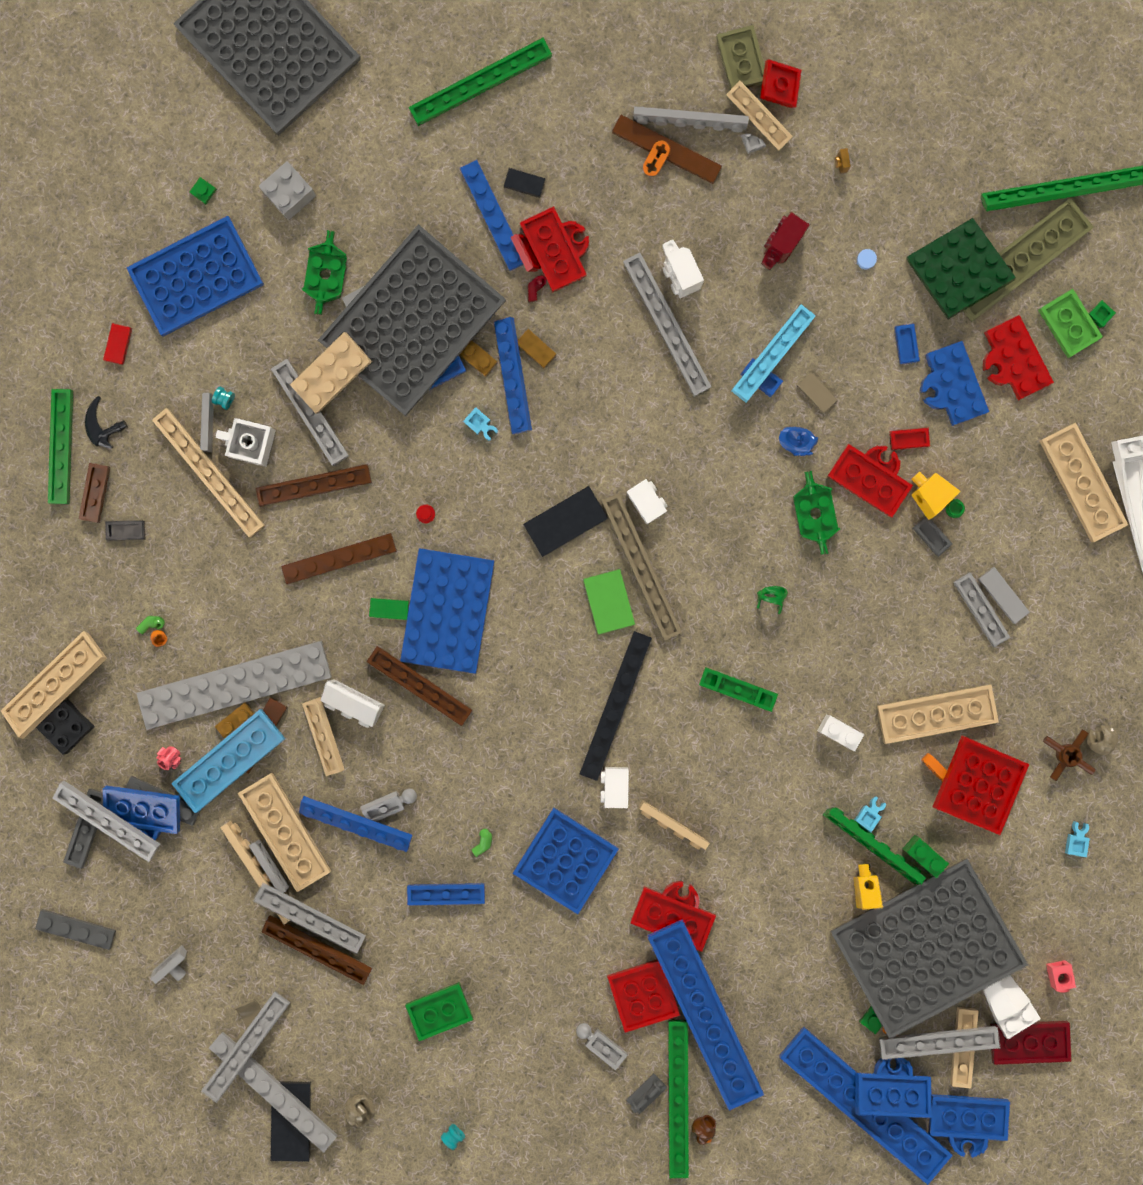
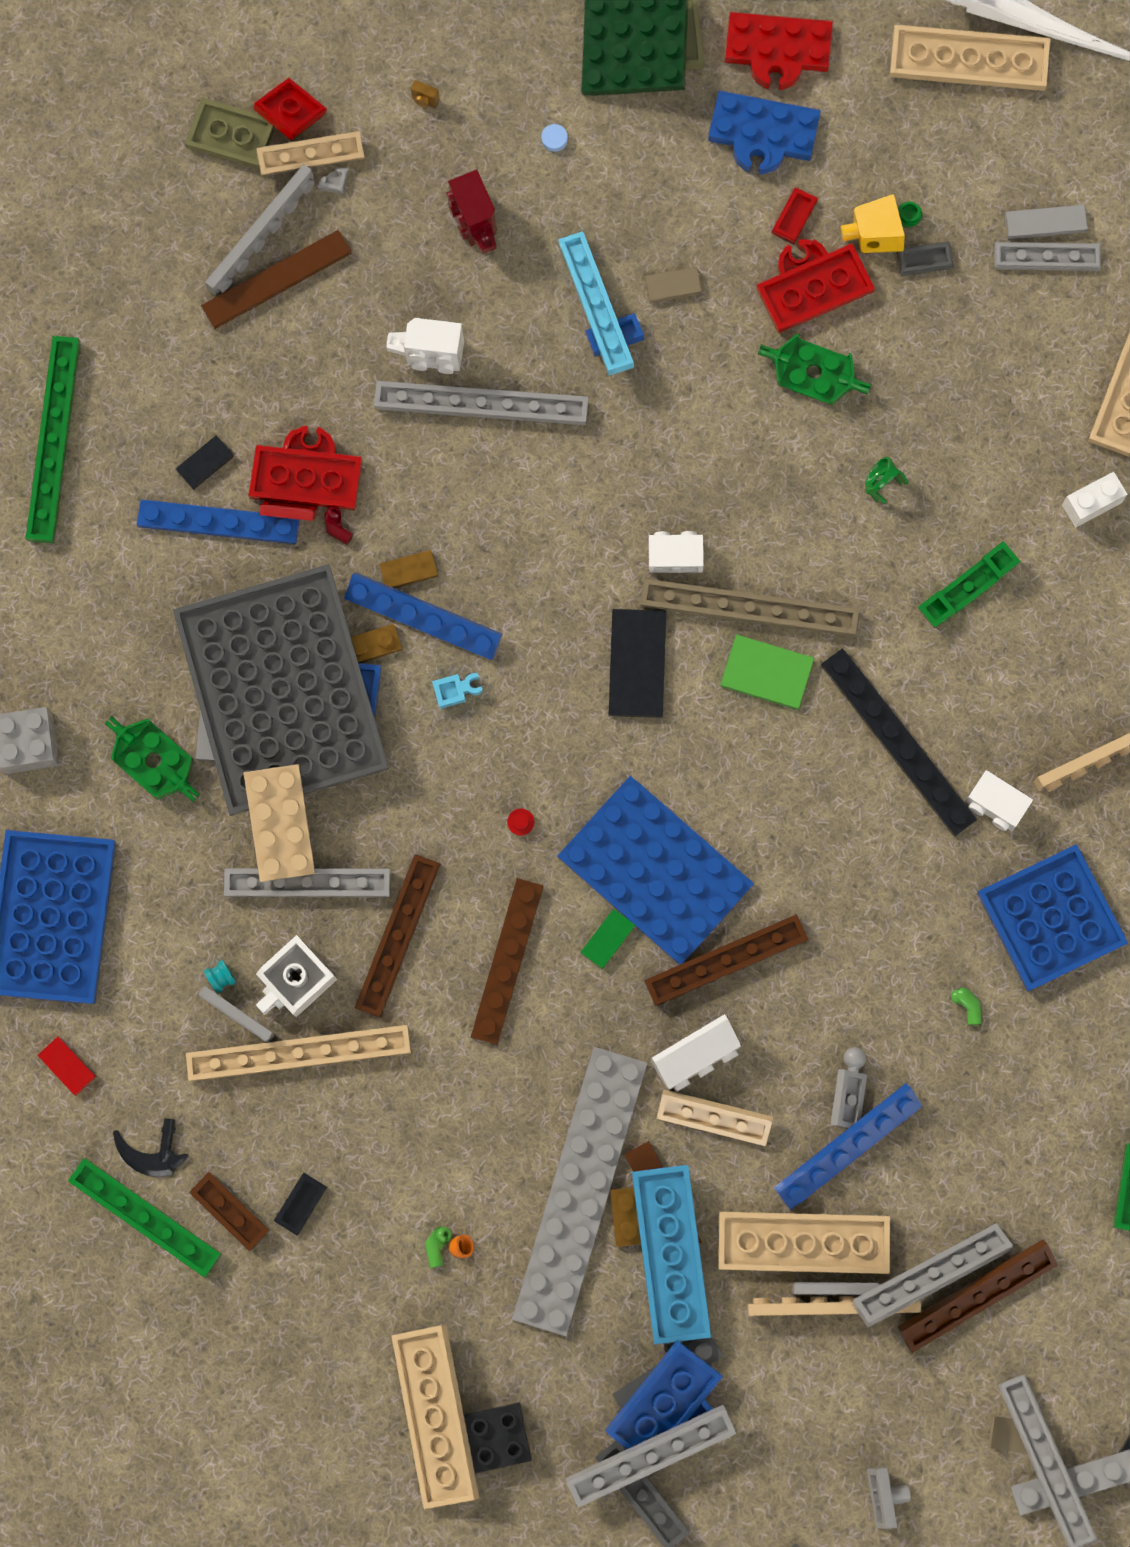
camera: 55 degrees left, 10 degrees down
(168, 758) = (620, 1328): coral gear -> none
(446, 894) = (1005, 1090): blue plate -> none
(652, 156) = (274, 298): orange beam -> none
(797, 440) = (716, 339): blue hat -> none
(906, 344) = (682, 152): blue tile -> none

